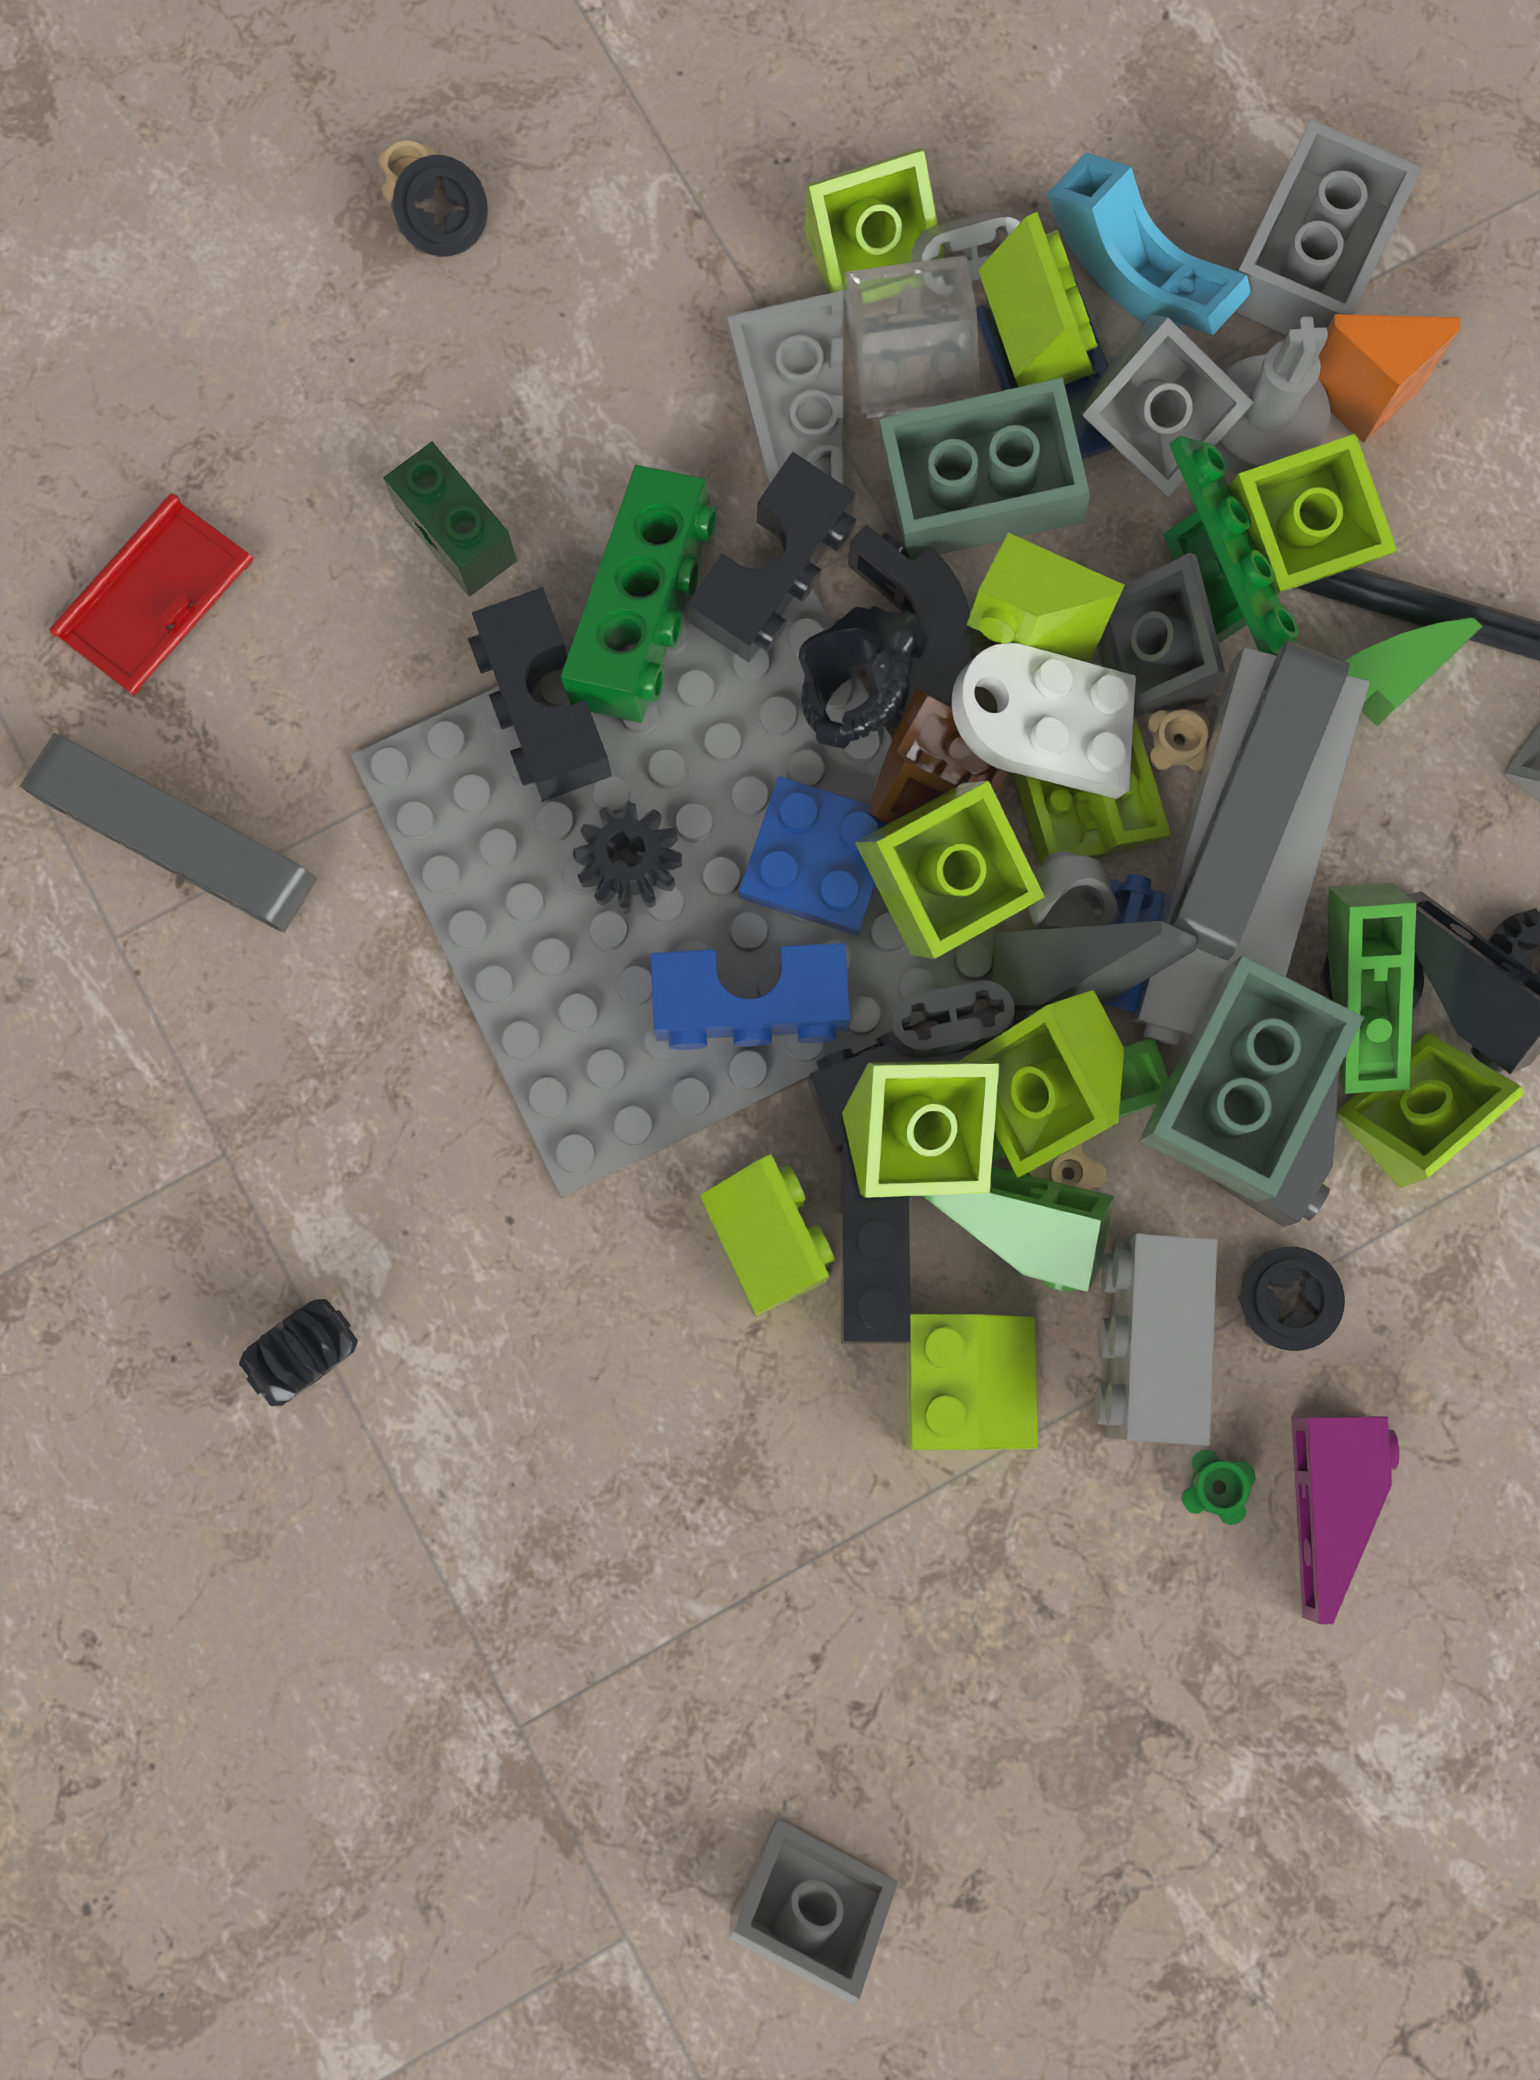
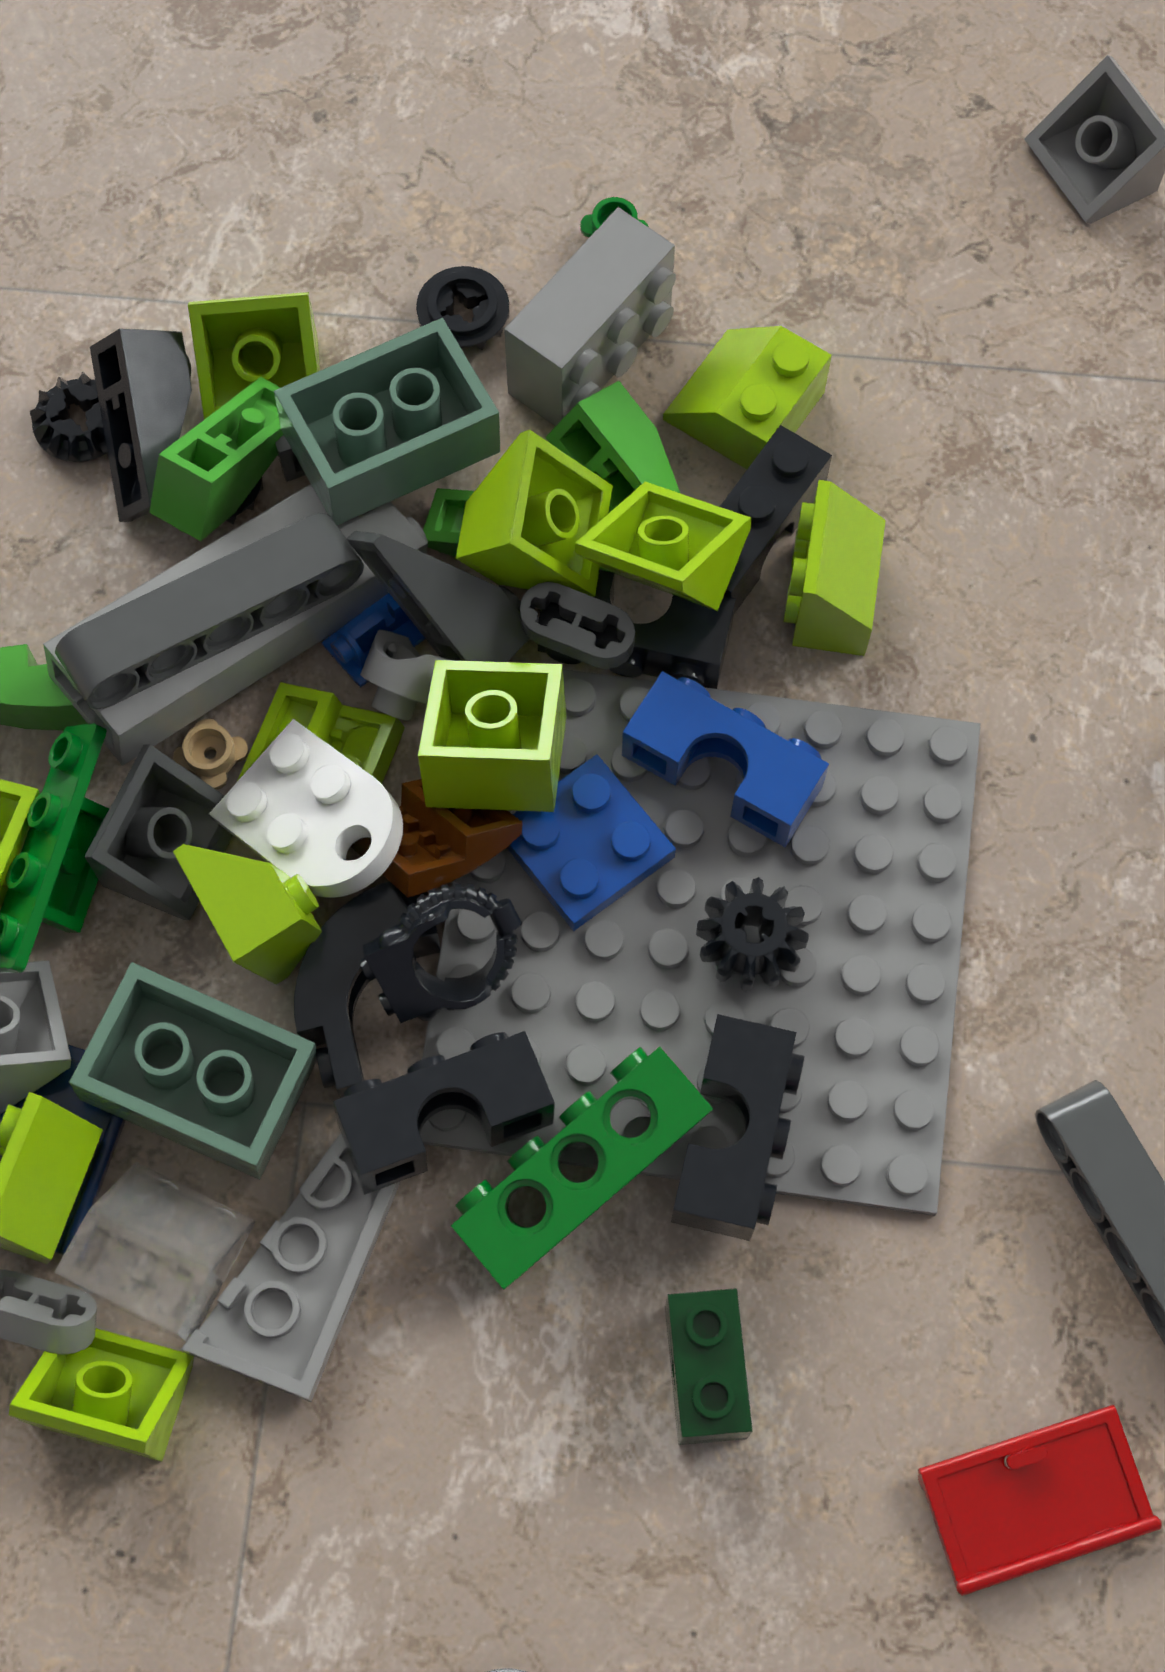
camera: 145 degrees left, 10 degrees down
(1339, 1491) = (537, 163): magenta slope -> none

